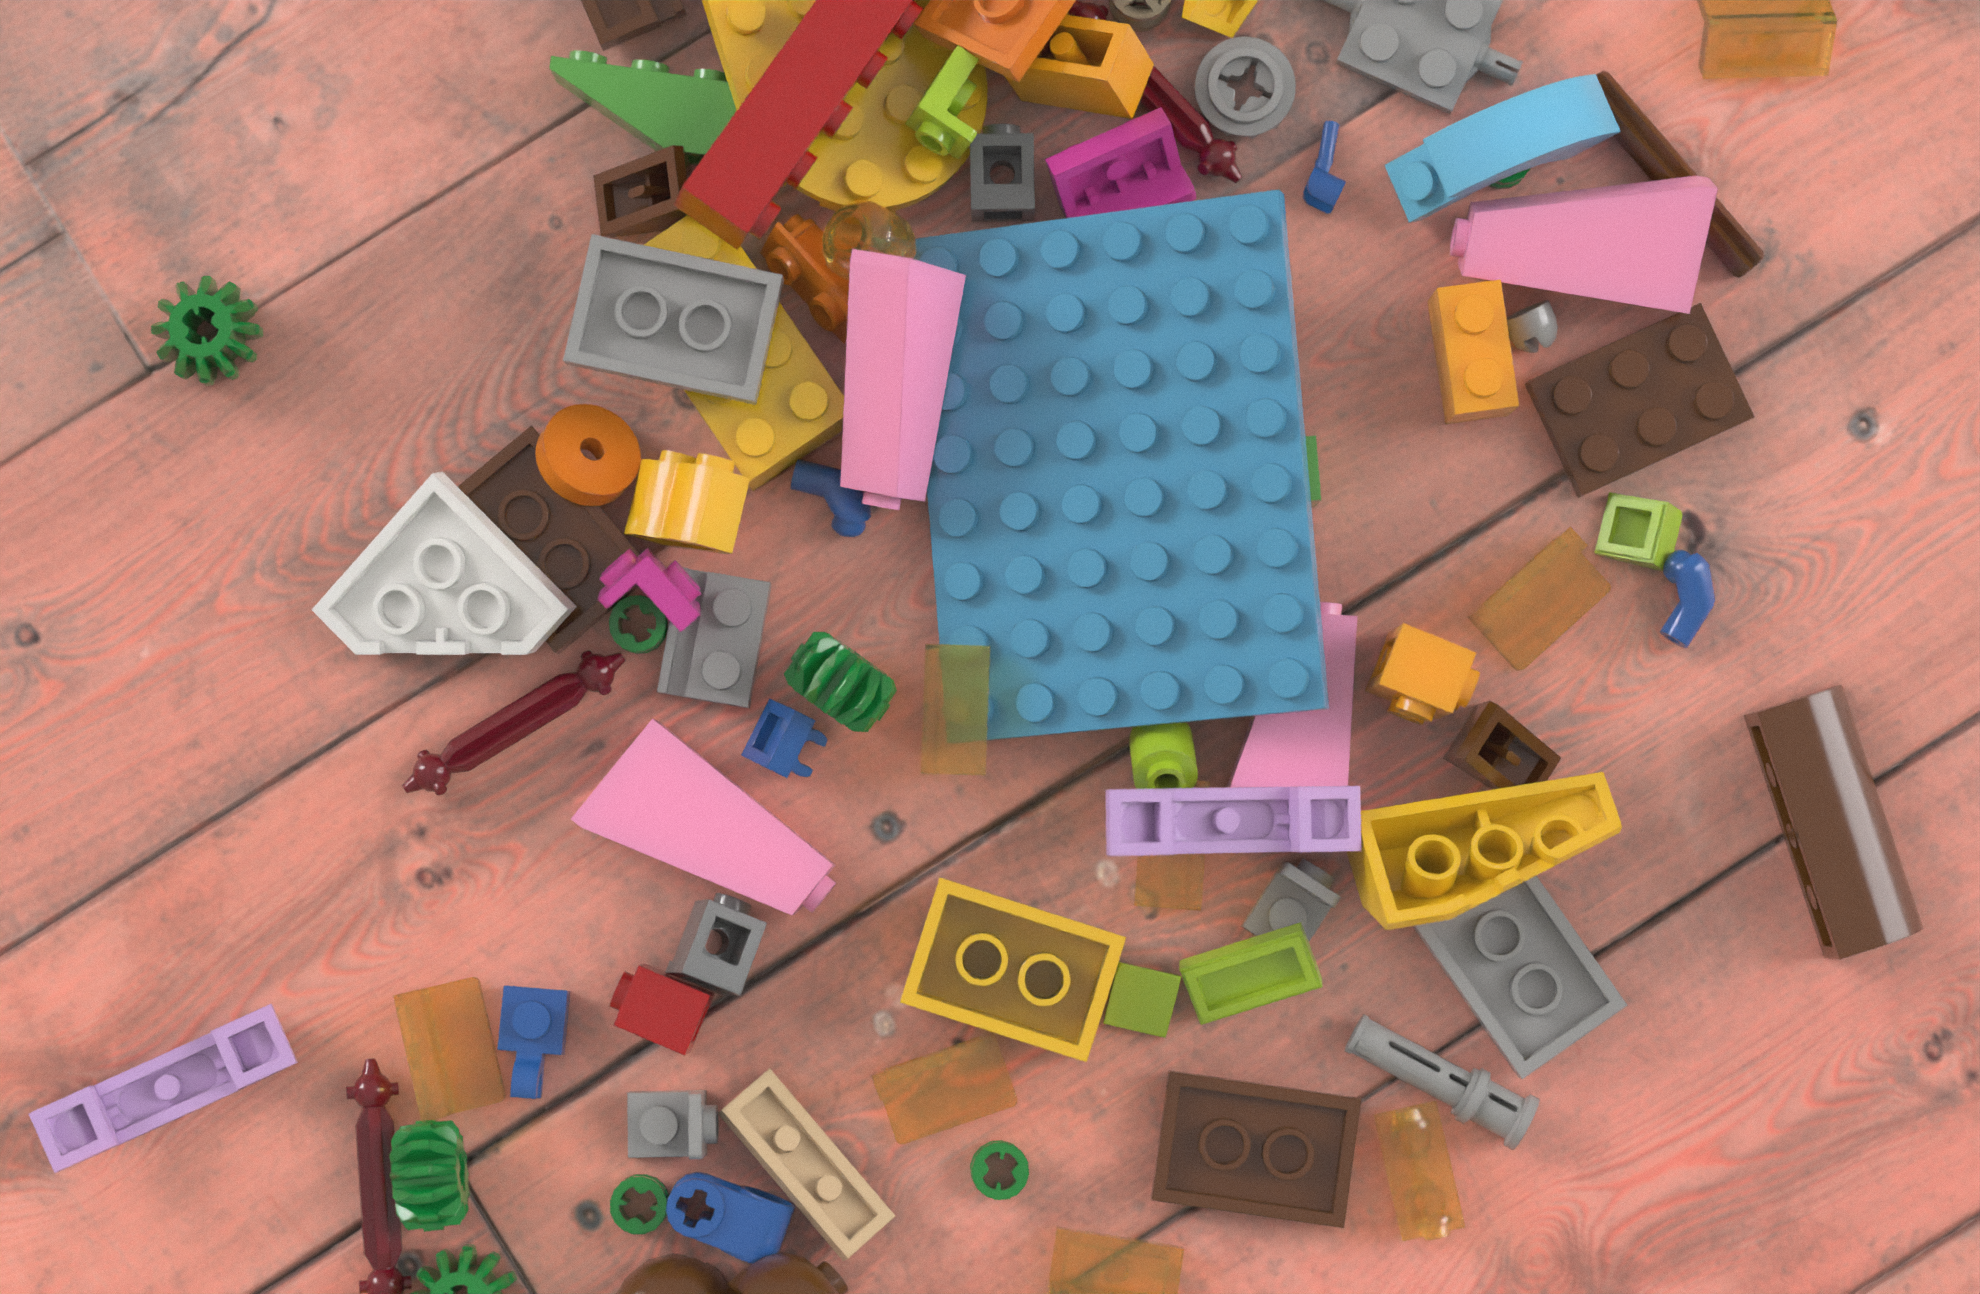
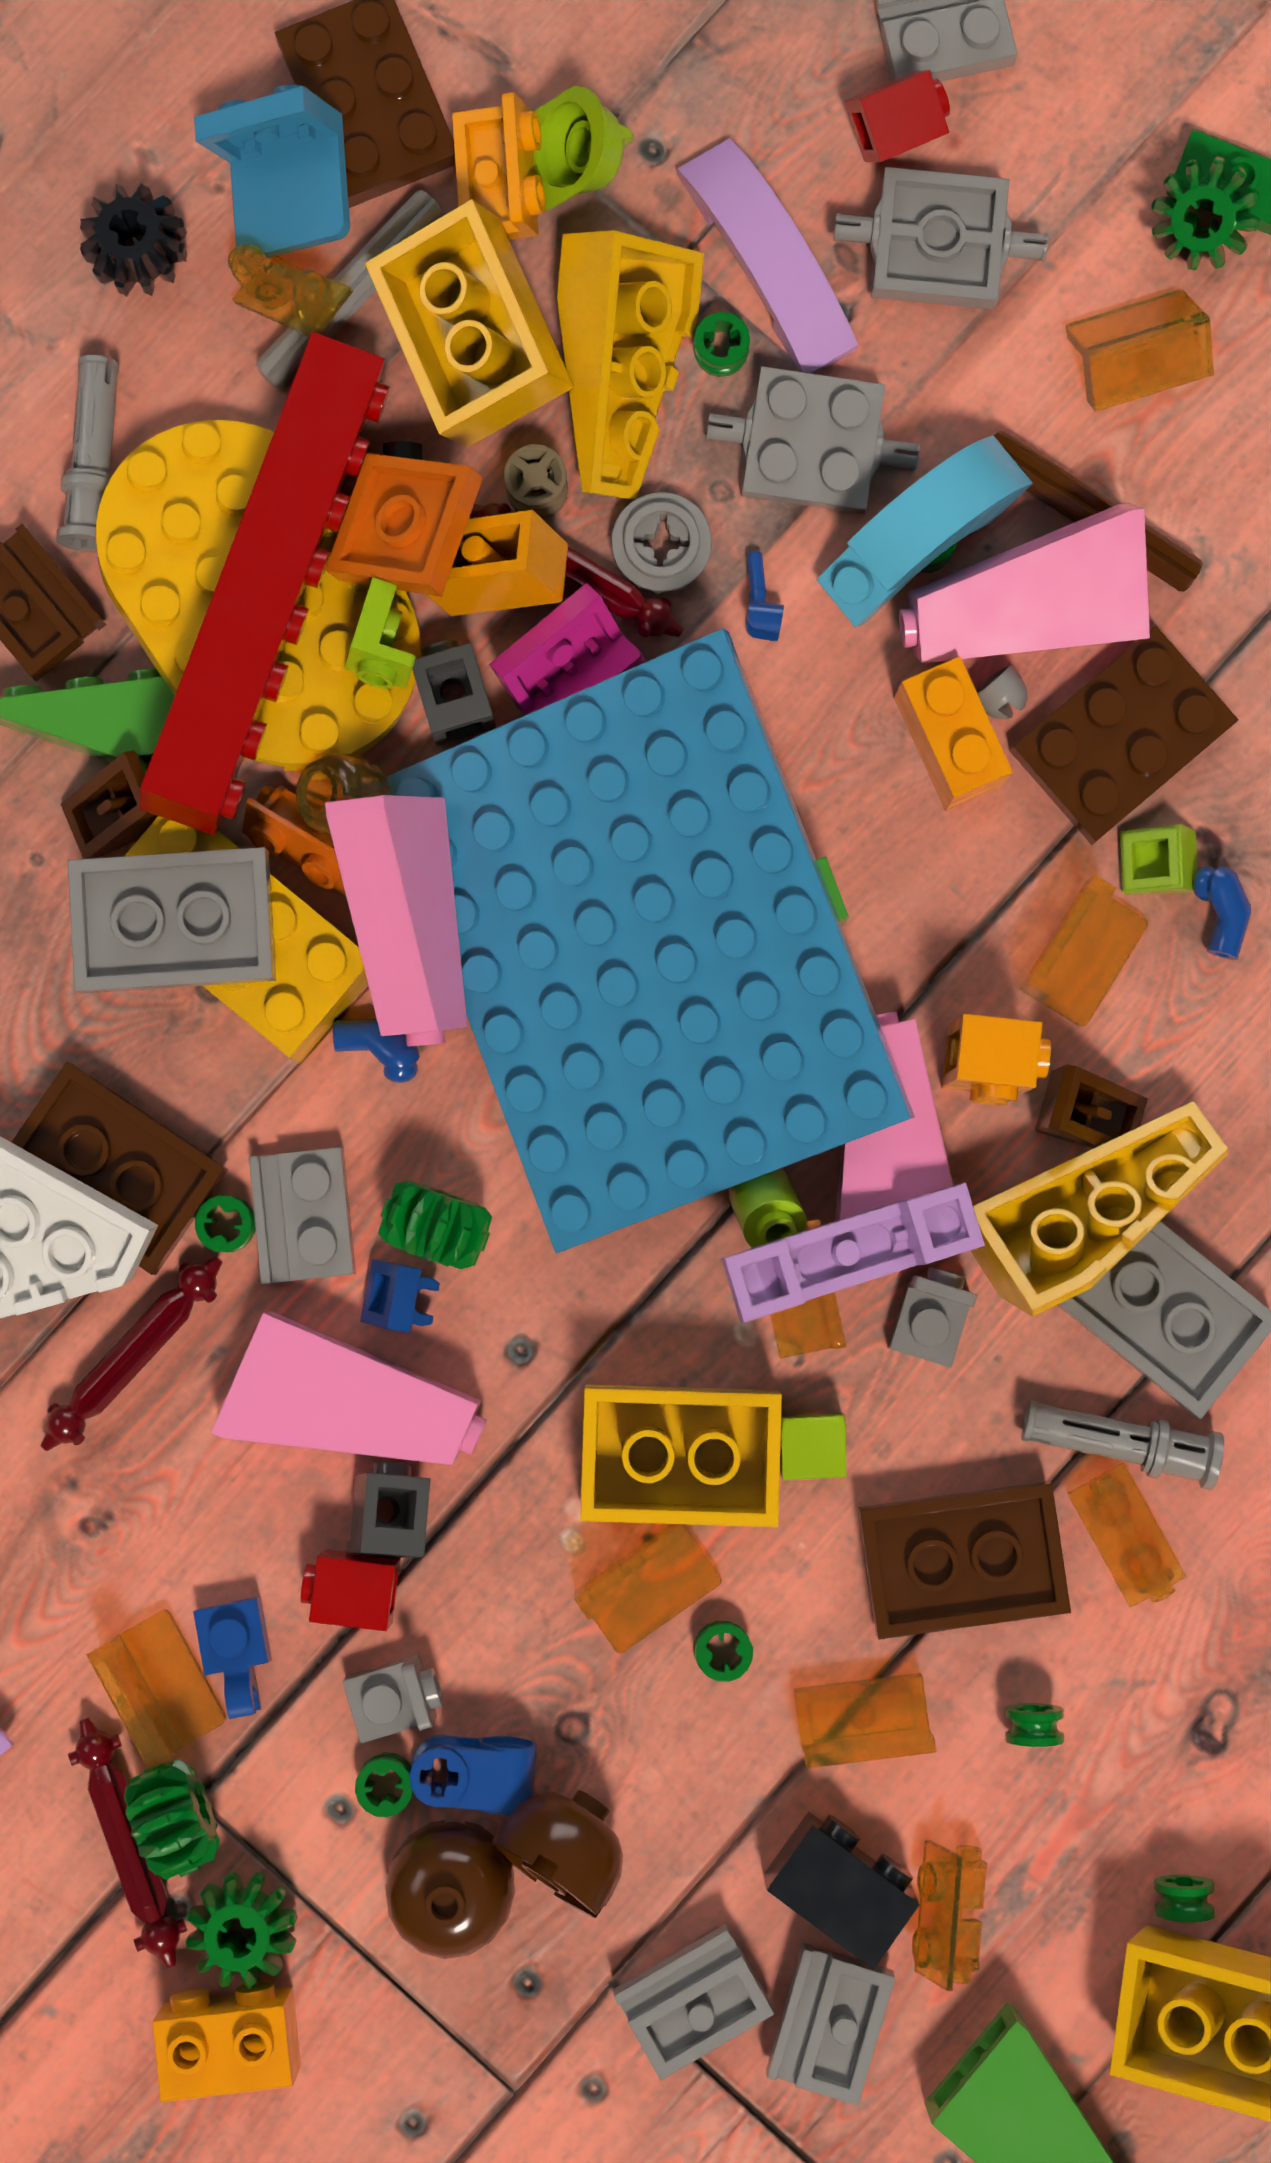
camera: 15 degrees left, 0 degrees up
(573, 474) = (122, 1098): orange piece -> none
(667, 587) = (239, 1182): dark pink bracket -> none
(688, 502) = (238, 1093): yellow brick -> none
(806, 1165) = (535, 1701): tan plate -> none
(955, 710) = (554, 1220): clear yellow panel -> none
(1250, 973) = (911, 1392): lime tile -> none

